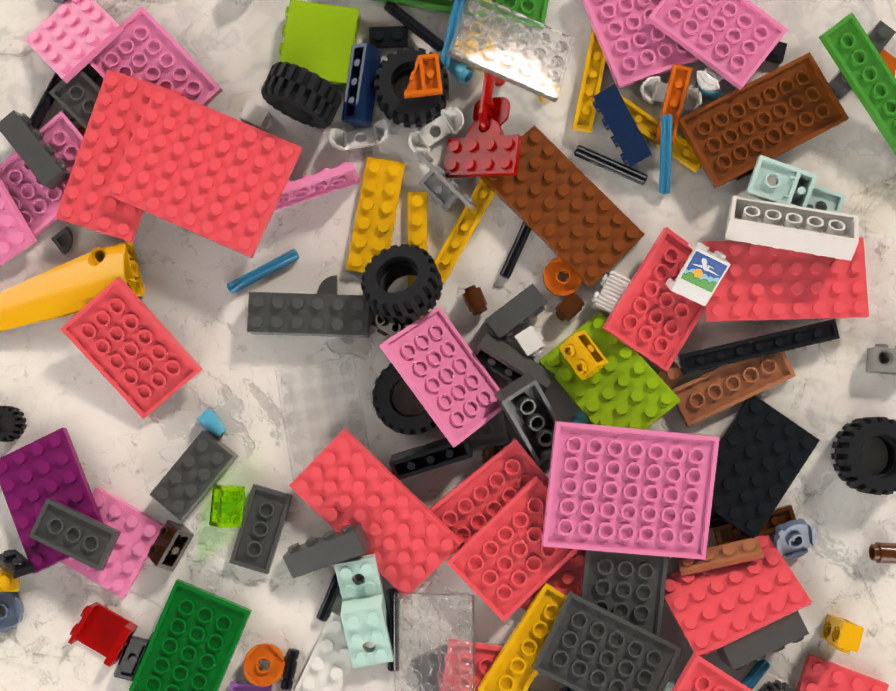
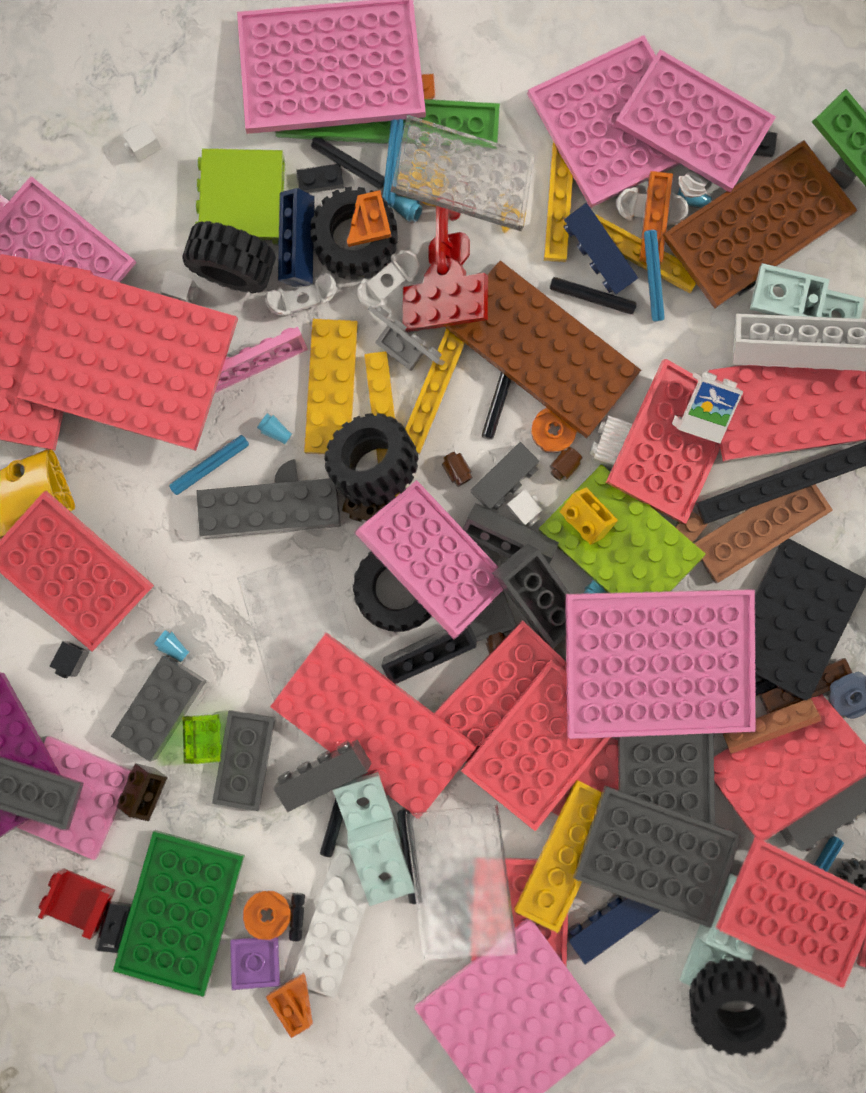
camera: 10 degrees left, 0 degrees up
(122, 423) = (69, 659): none -> black brick
(321, 246) = (274, 429): none -> medium azure cone

